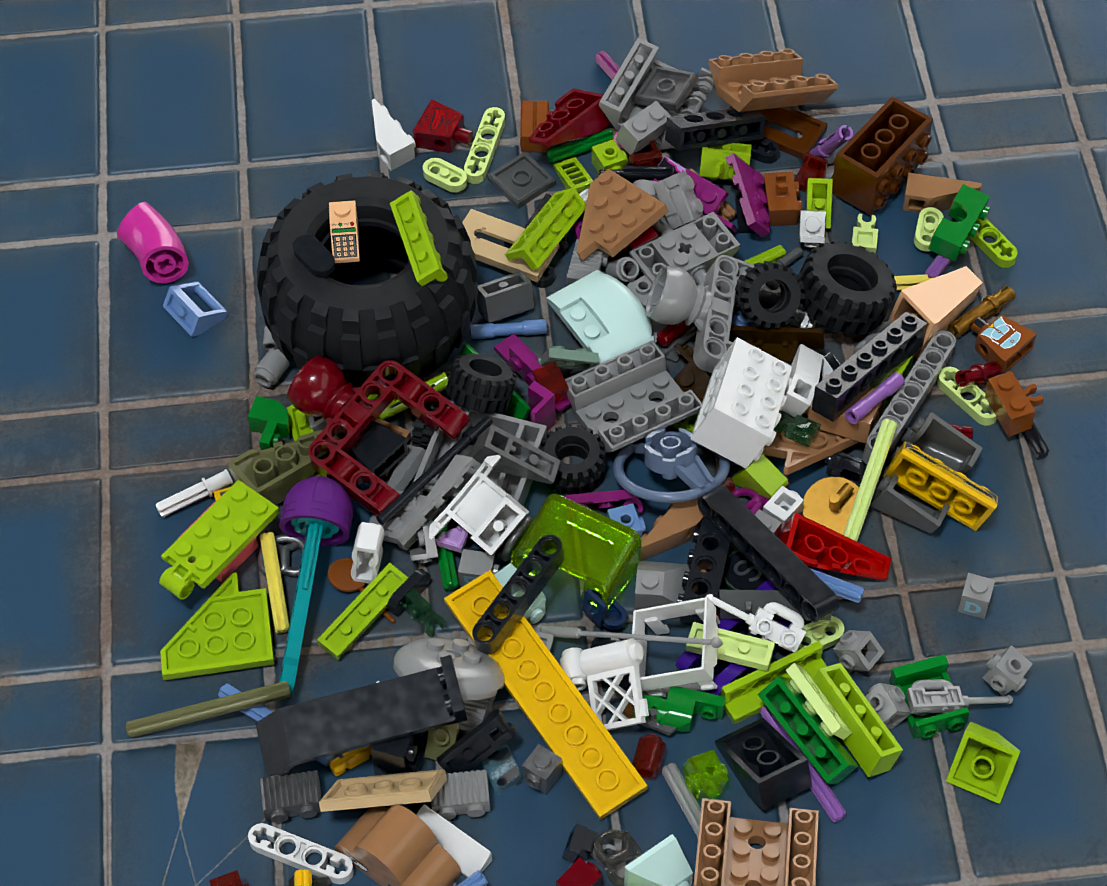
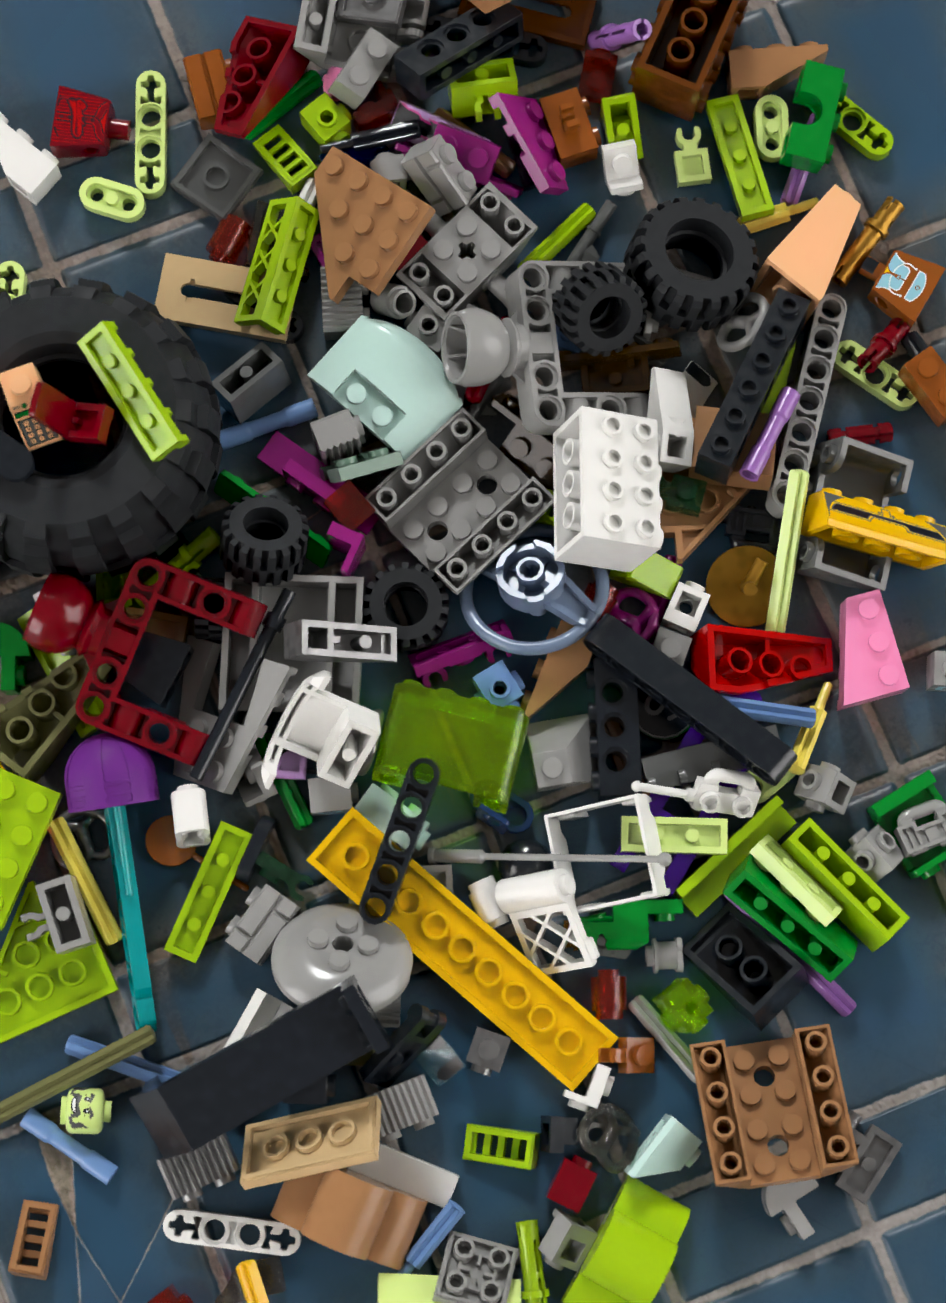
camera: 20 degrees left, 25 degrees up
(141, 838) = (44, 1256): none -> medium nougat slope
(208, 773) = (87, 1158): none -> medium blue piece
(218, 735) = (85, 1110): none -> yellowish green head
(250, 591) = (64, 915): none -> light grey brick
(366, 241) = (68, 418): none -> dark red bracket
(384, 644) = (261, 923): none -> light grey brick
(518, 211) = (228, 240): none -> clear red brick
(550, 850) = (532, 1146): none -> lime slope
(556, 332) = (338, 436): none -> light grey brick
(621, 818) = (599, 1085): none -> white bracket
(655, 801) = (632, 1055): none -> dark orange plate
(700, 738) = (665, 955): none -> light grey brick
(855, 612) = (808, 736): none -> light yellow axle
(900, 239) = (739, 158): none -> lime plate
(917, 570) = (868, 652): none -> bright pink wedge

